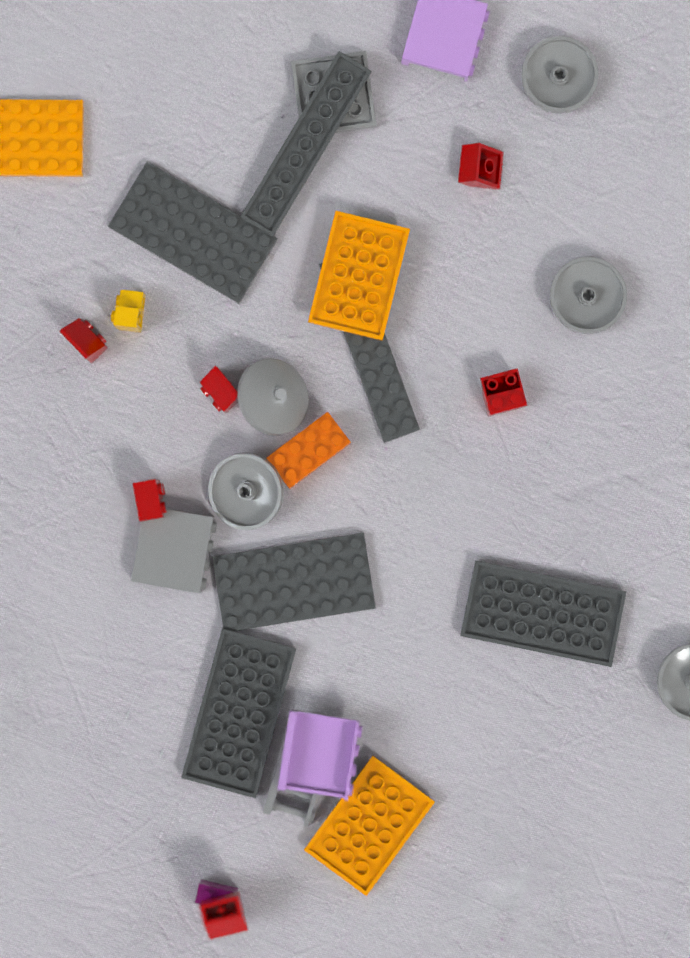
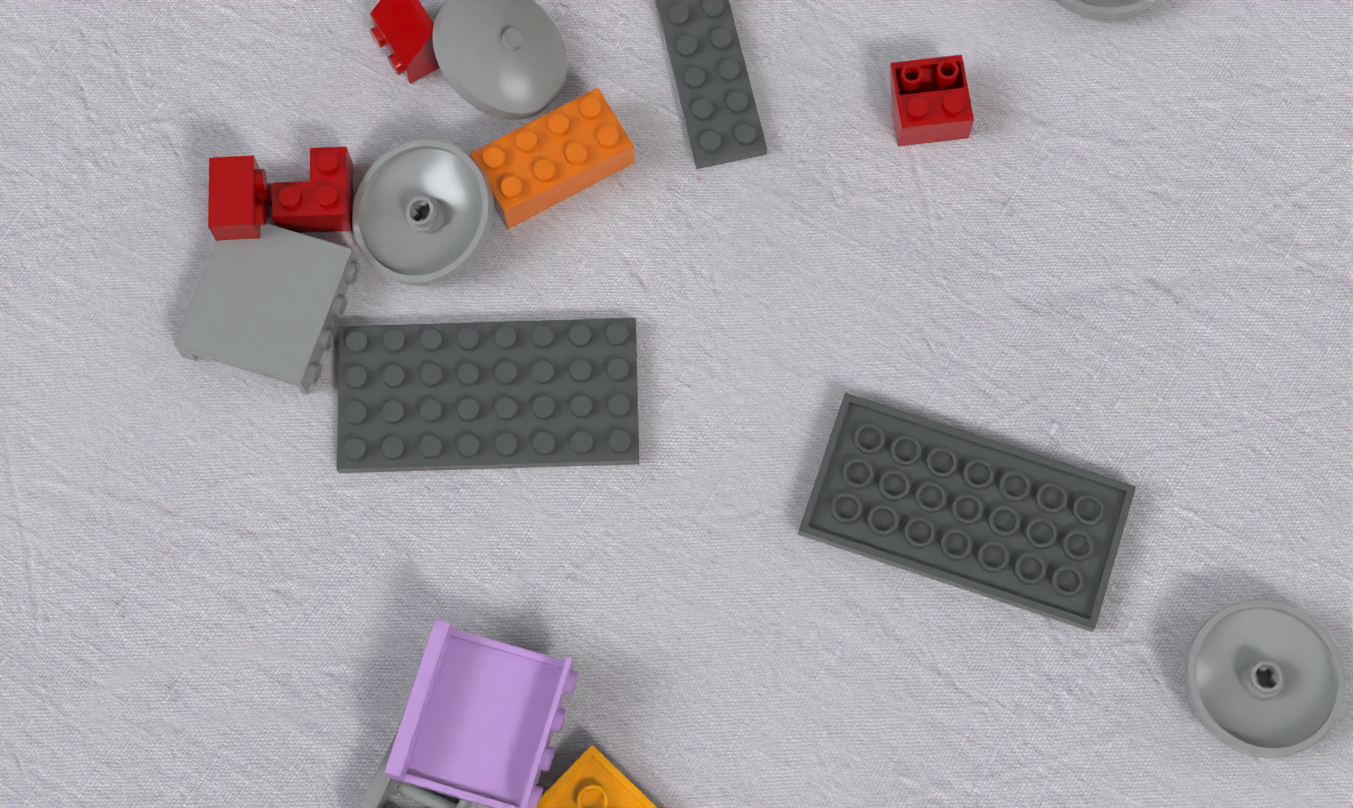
camera: 10 degrees right, 15 degrees down
(194, 488) = (321, 202): none -> red brick
(238, 713) = (337, 629): dark grey plate -> none

